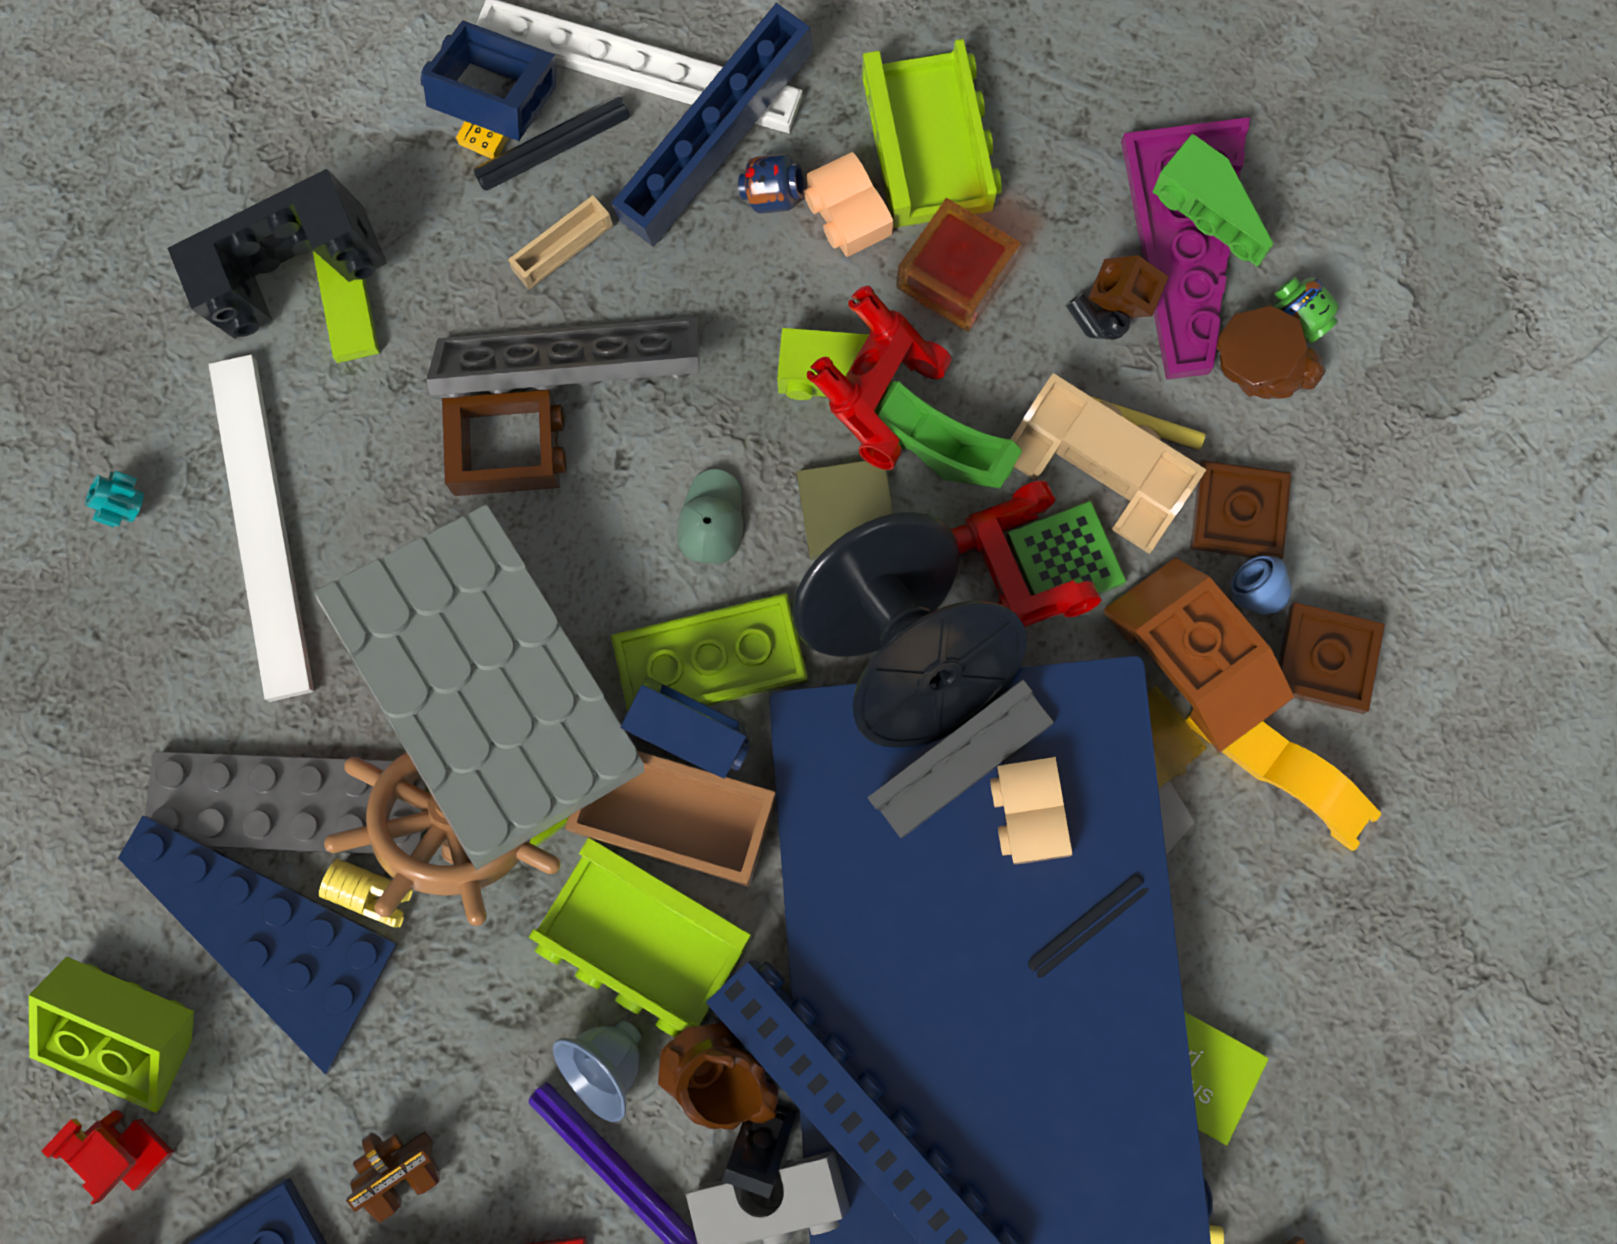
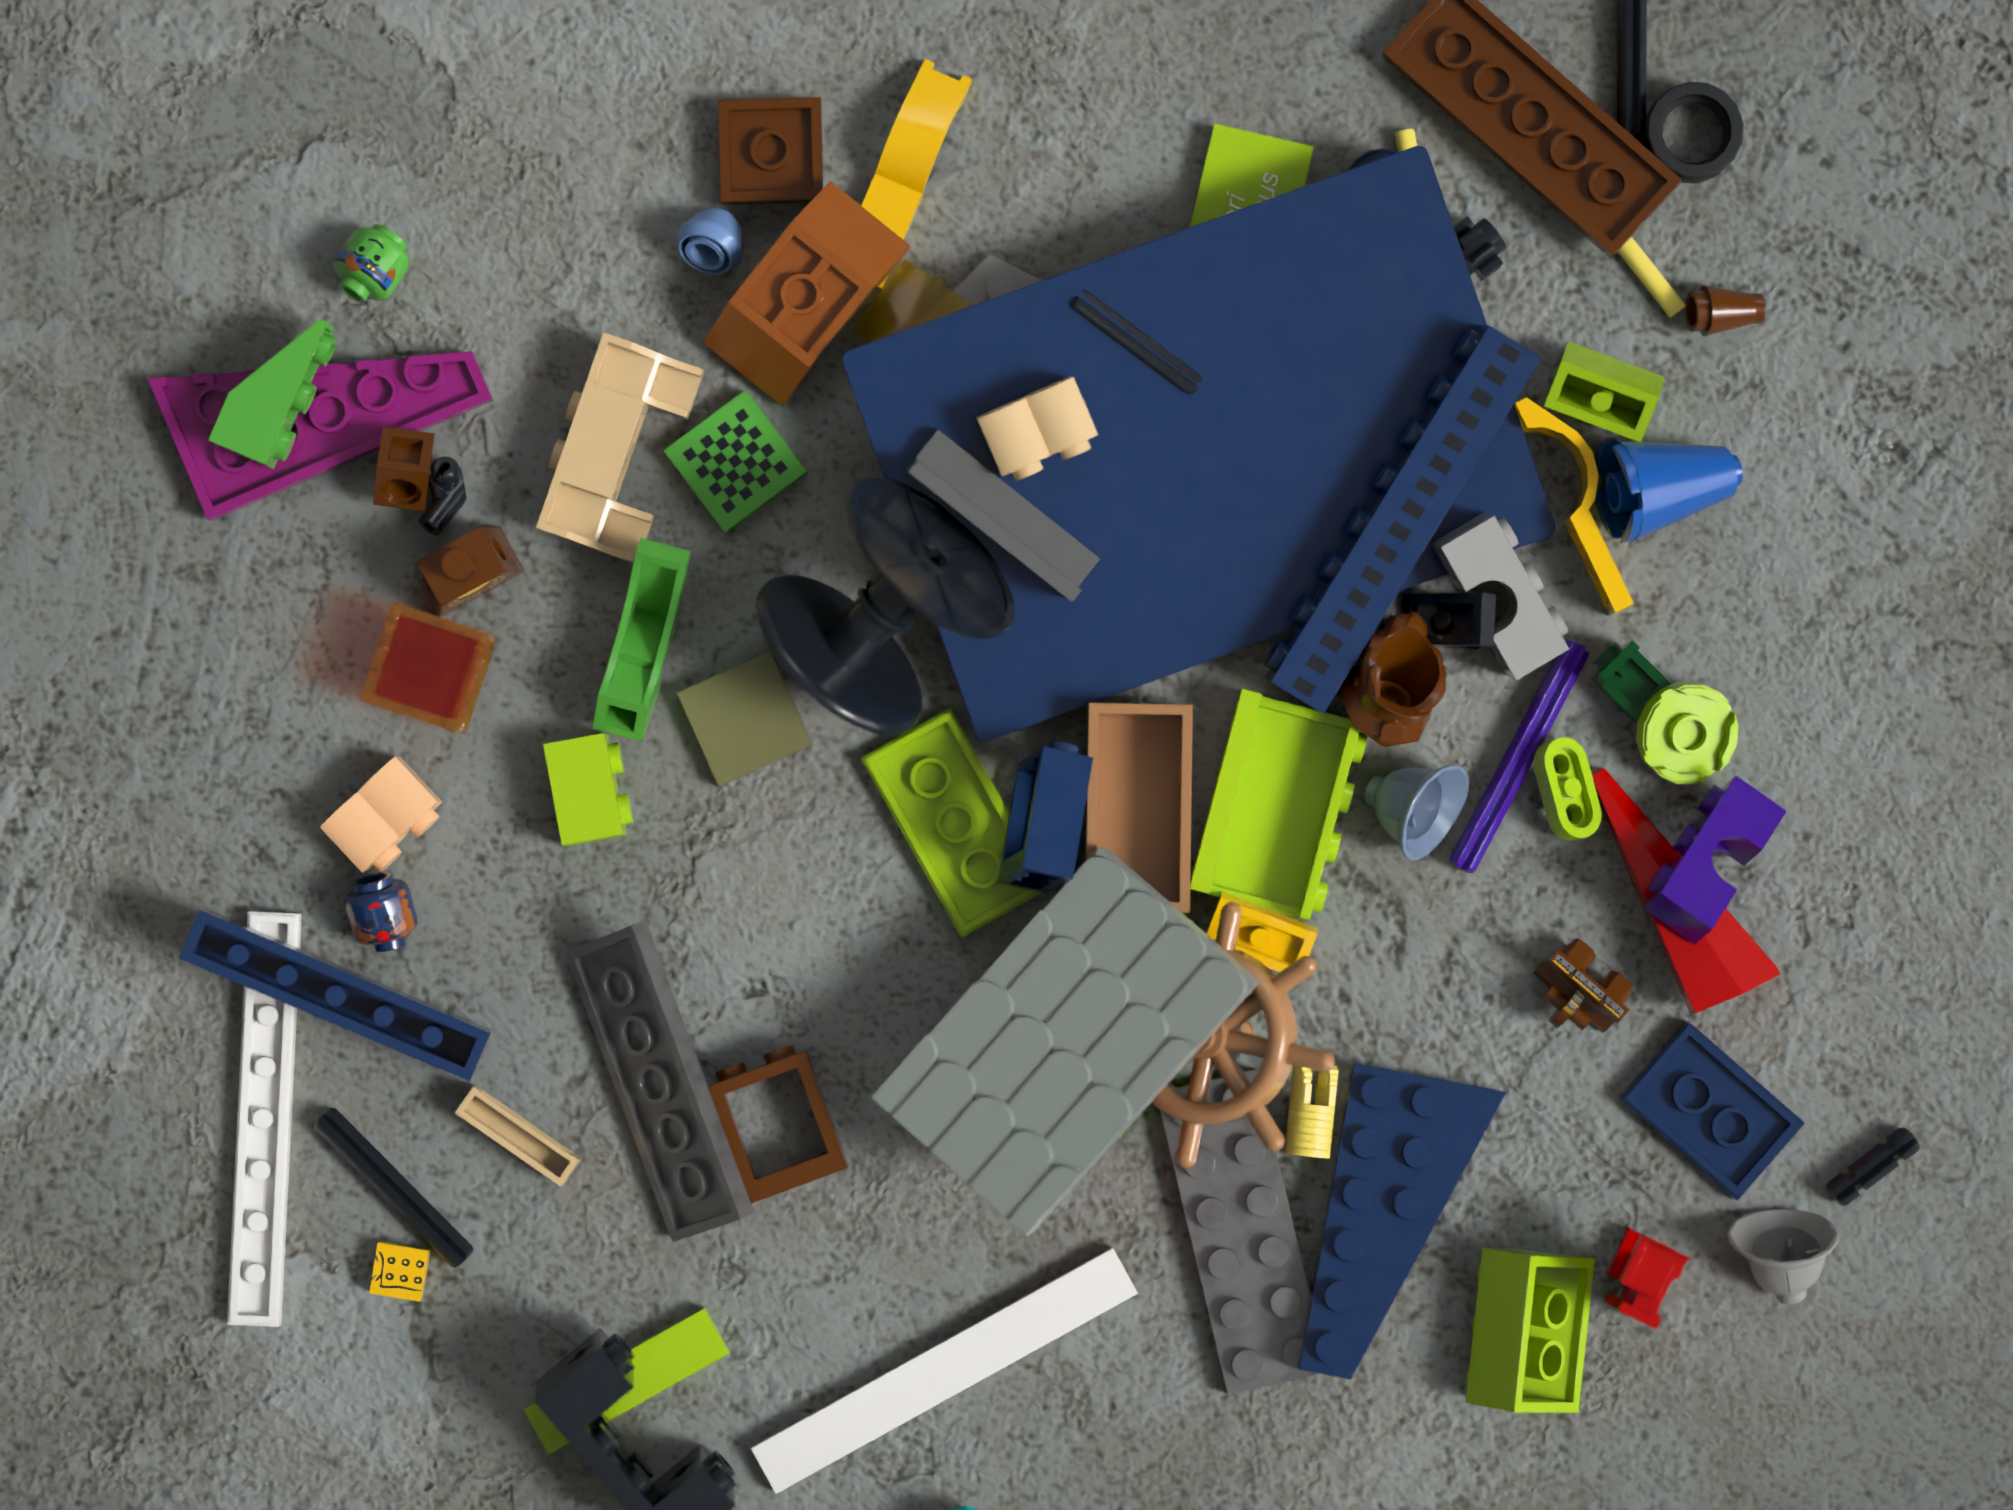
camera: 110 degrees left, 10 degrees up
(528, 65) = (304, 1272): dark blue window -> none
(530, 896) = (1267, 934): none -> yellow plate
(578, 1215) = (1568, 788): none -> lime plate
(717, 497) = (776, 870): sand green cap -> none
(857, 394) = (627, 735): red connector -> none
(930, 134) = (265, 745): lime panel -> none
(985, 534) = (811, 503): red connector -> none
(1032, 310) = (467, 568): none -> reddish brown torso
(1165, 429) = (551, 411): light yellow bar -> none
(1241, 510) = (626, 282): reddish brown tile -> none
(1268, 354) = (440, 293): reddish brown piece -> none

